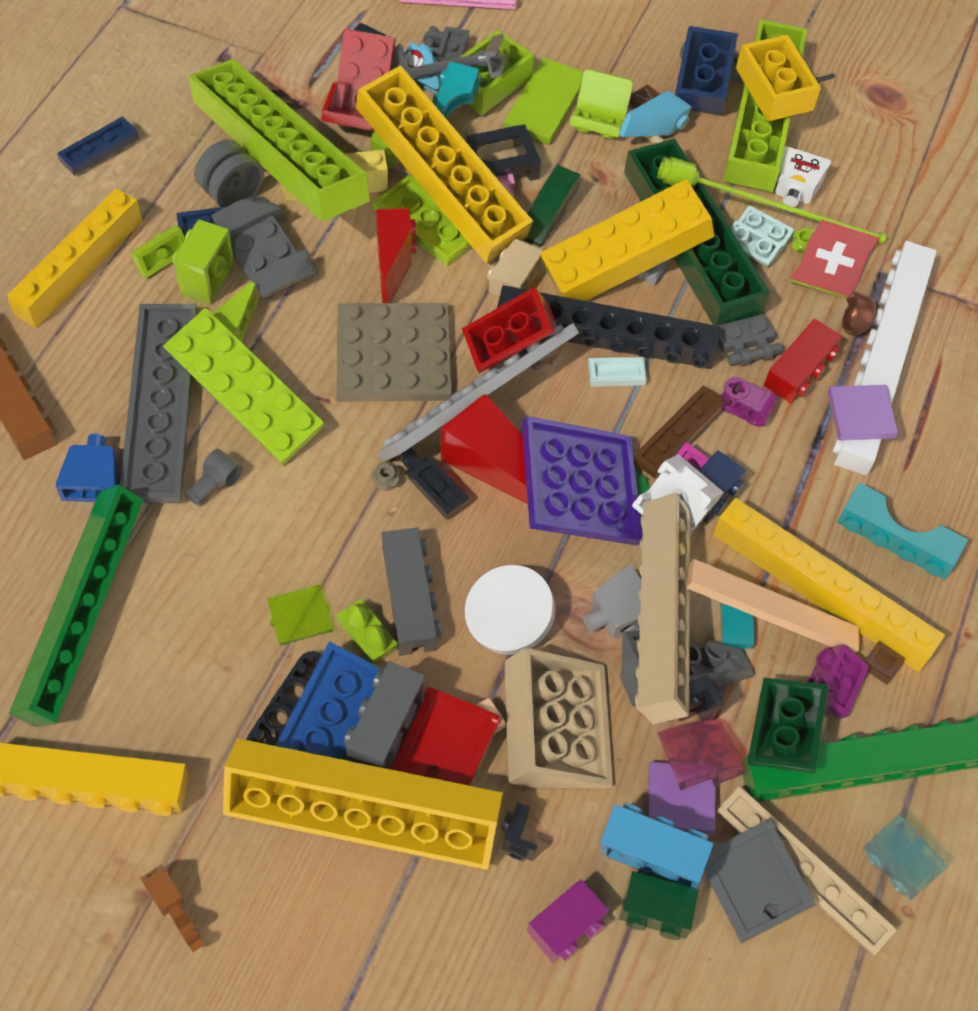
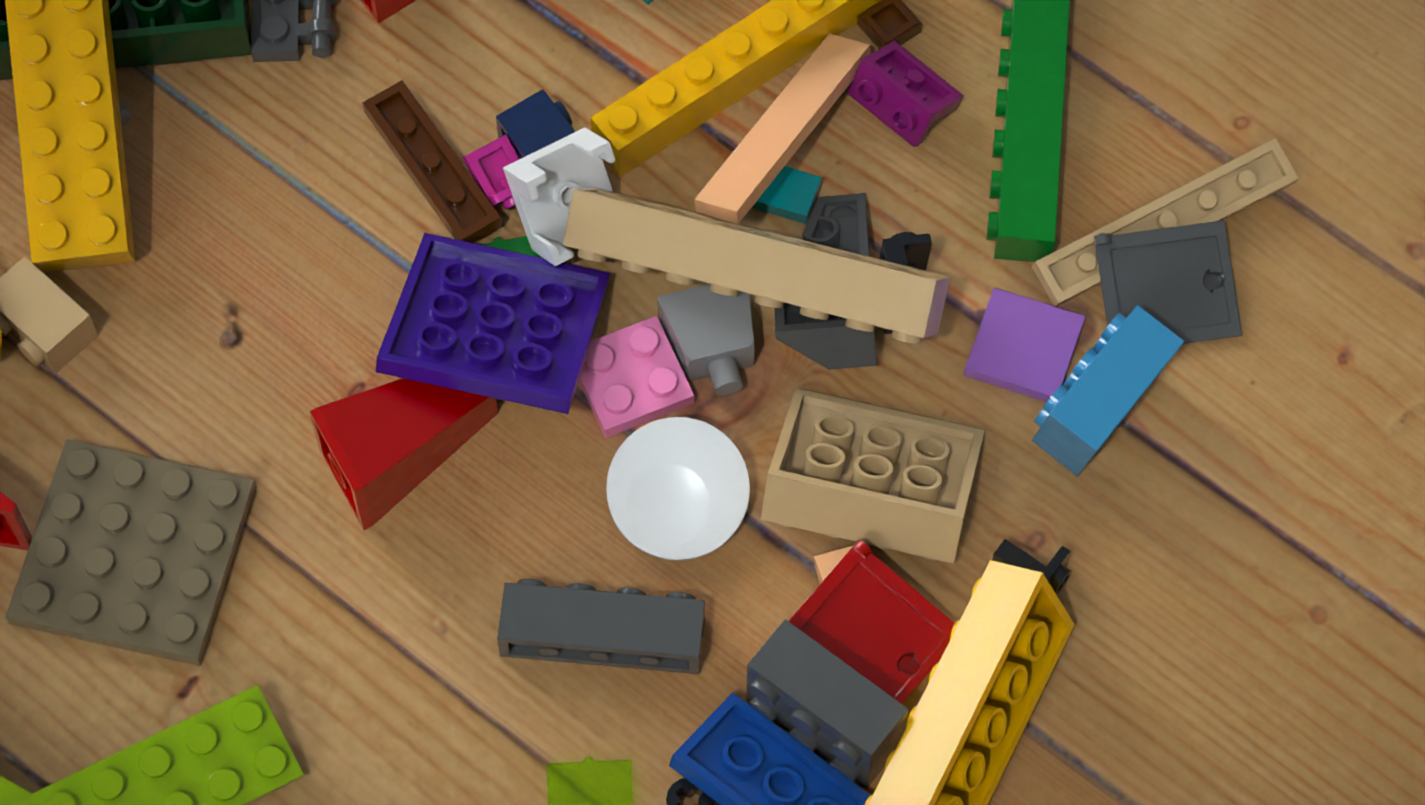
camera: 70 degrees left, 5 degrees up
(366, 632) = (649, 710): lime tile -> none
(386, 483) = (378, 629): dark tan plate -> none
(434, 483) = (416, 546): black hinge -> none
(463, 398) = (279, 434): light grey plate -> none
(509, 329) = (190, 347): red slope -> none
(568, 922) = (1171, 539): magenta brick -> none
(578, 570) = (633, 377): none -> bright pink plate
(617, 371) = (286, 222): light aqua tile -> none
(631, 330) = (274, 75): black brick -> none
(658, 906) = (1174, 418): dark green brick -> none
(700, 753) = (980, 297): clear pink slope -> none
(750, 401) = (411, 50): magenta piece -> none
(790, 725) = (974, 165): dark green slope -> none
(904, 857) = (1178, 96): clear light blue brick -> none

